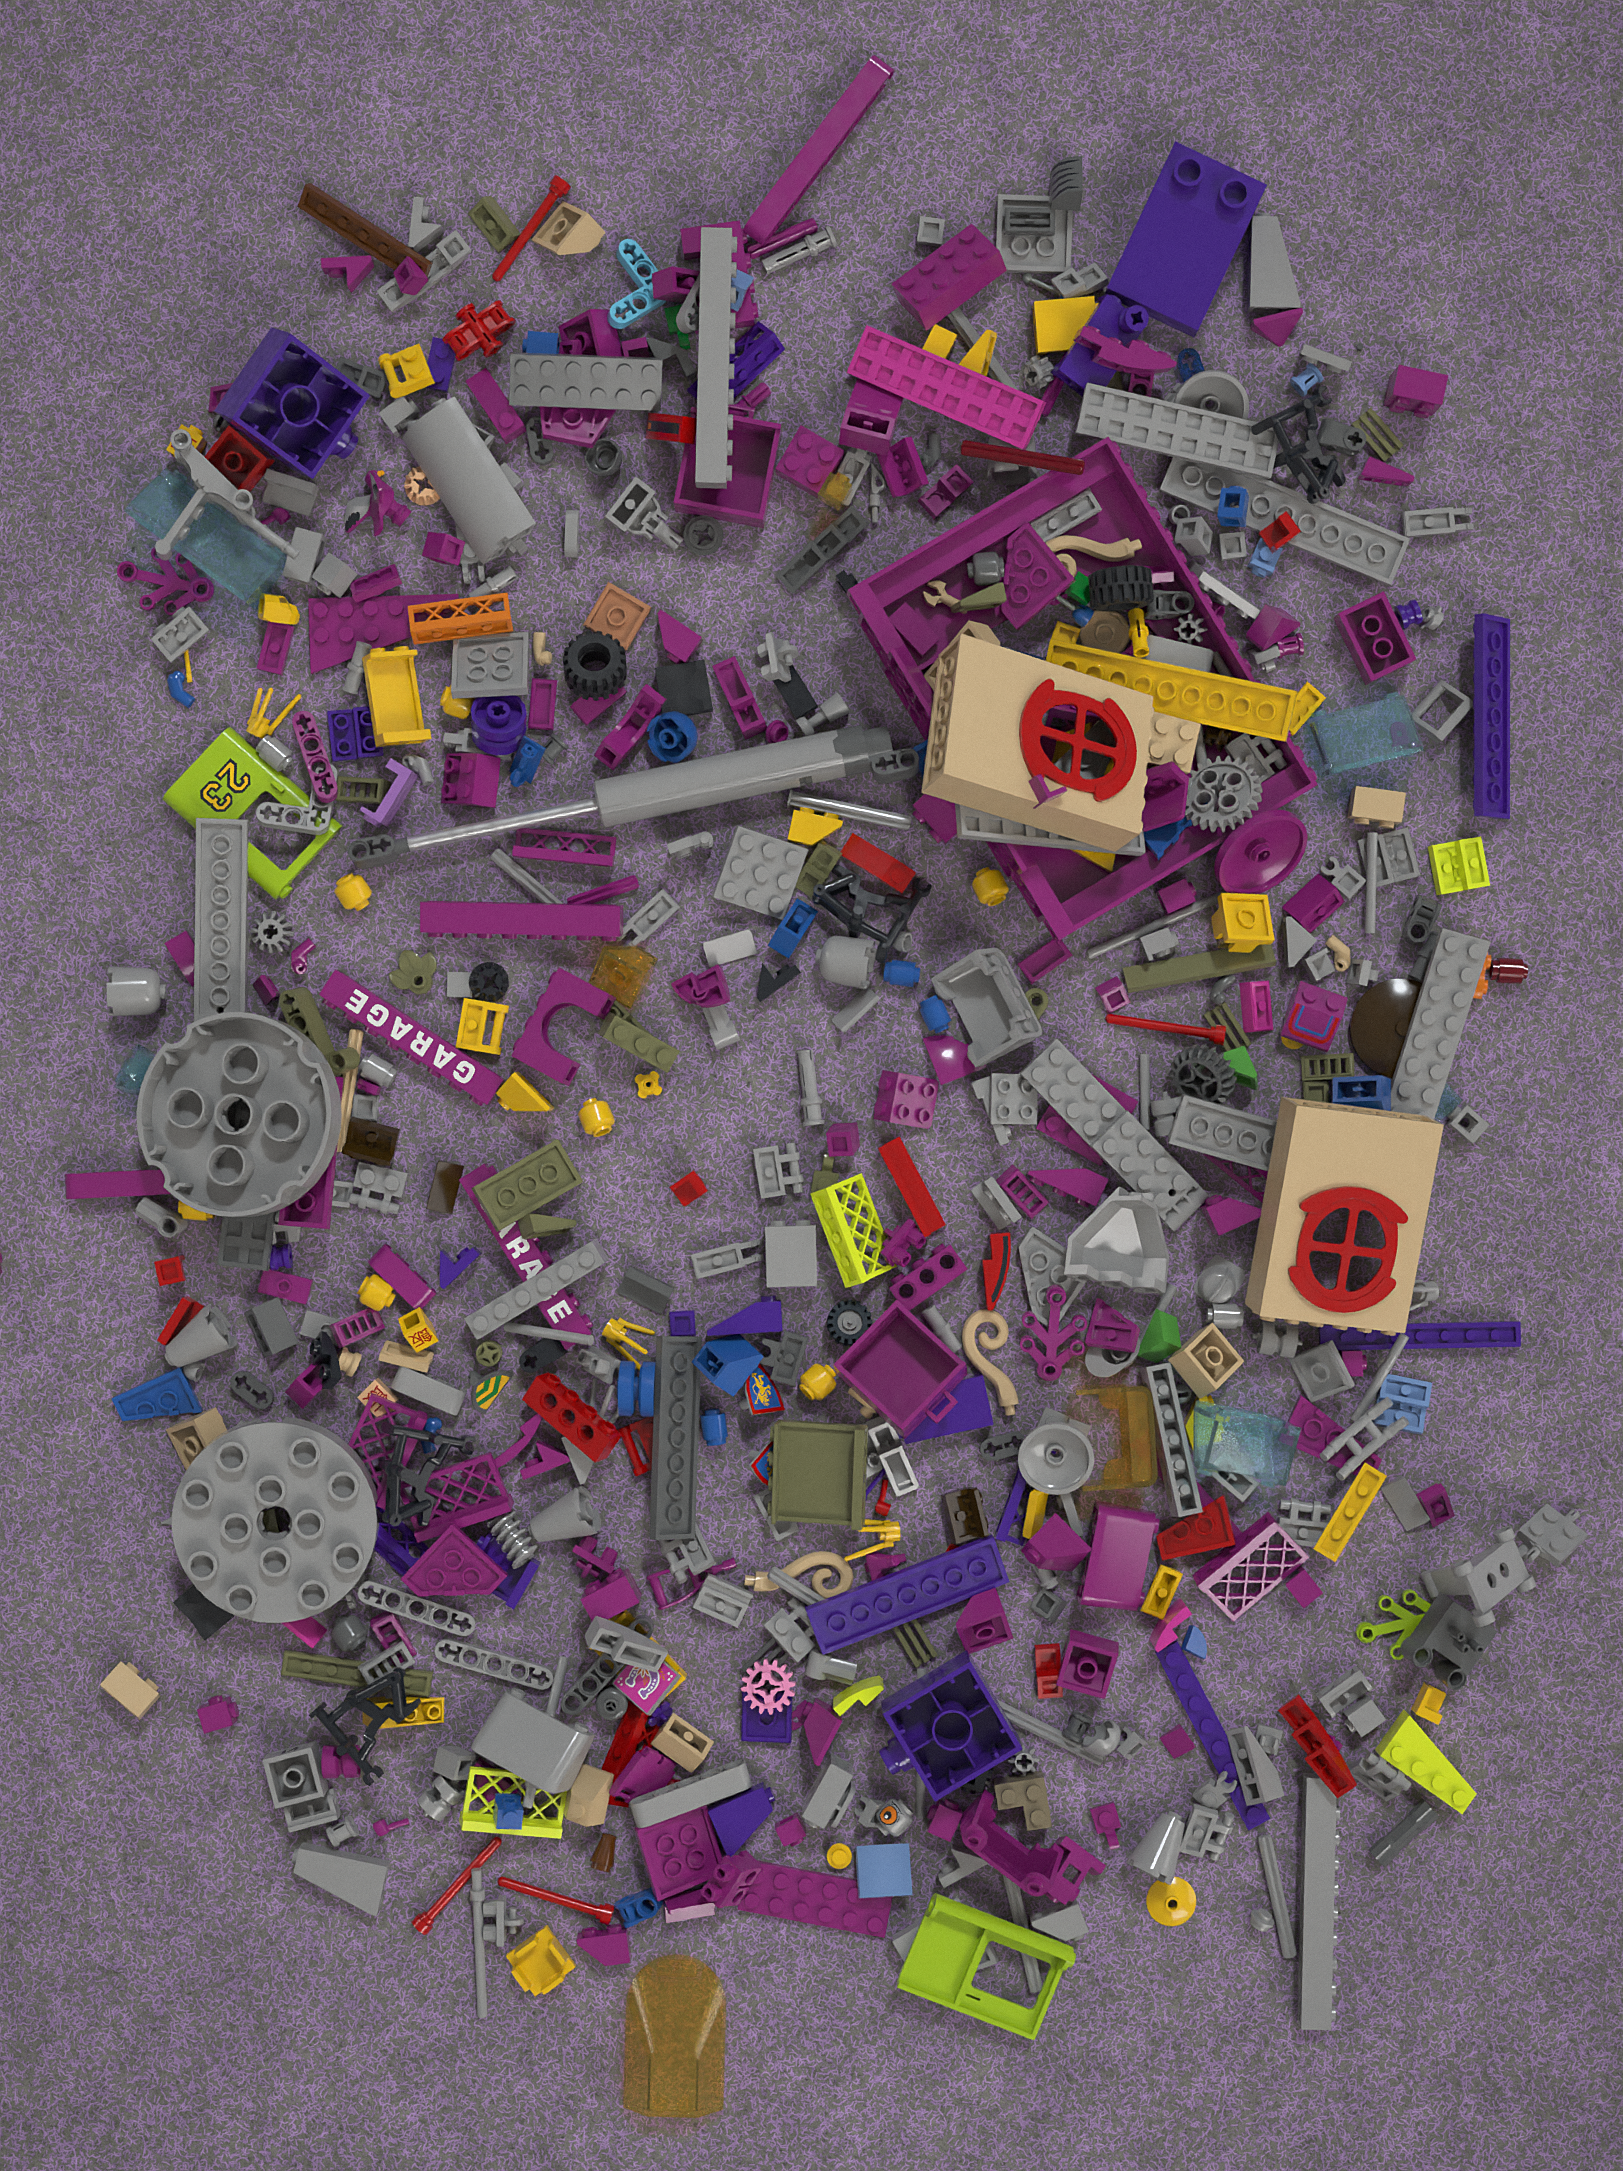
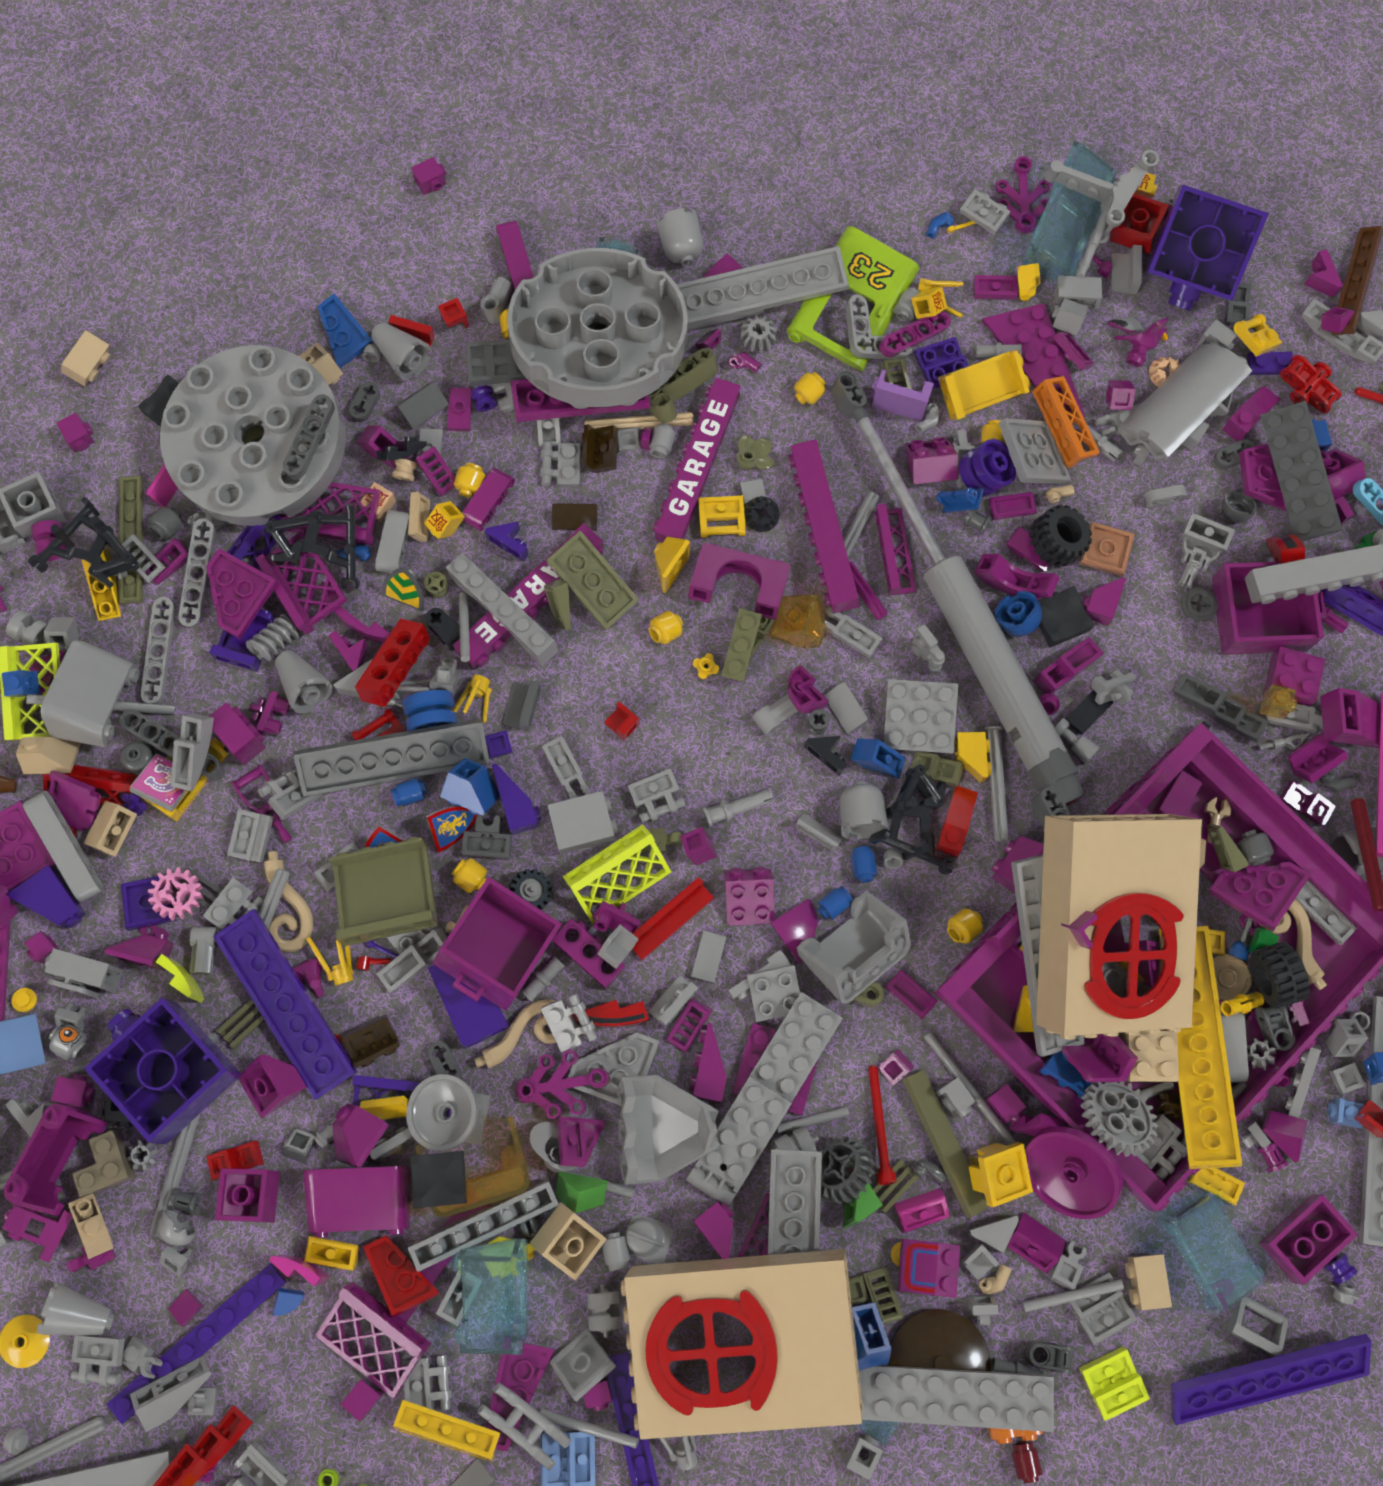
camera: 80 degrees right, 15 degrees down
(282, 731) = (929, 302): none -> yellow brick
(302, 1463) = (305, 435): none -> dark grey beam
(670, 353) = (1346, 537): dark grey slope -> none
(731, 979) = (817, 715): none -> dark grey bush
(931, 1247) = (618, 946): none -> light grey panel
(958, 1156) = (708, 957): none -> light grey tile
(996, 1319) = (563, 1024): none -> light grey plate
(1081, 1820) = (90, 1226): none -> tan slope
(1122, 1474) = (438, 1179): none -> black brick
(1205, 874) = (1032, 1126): none -> magenta slope

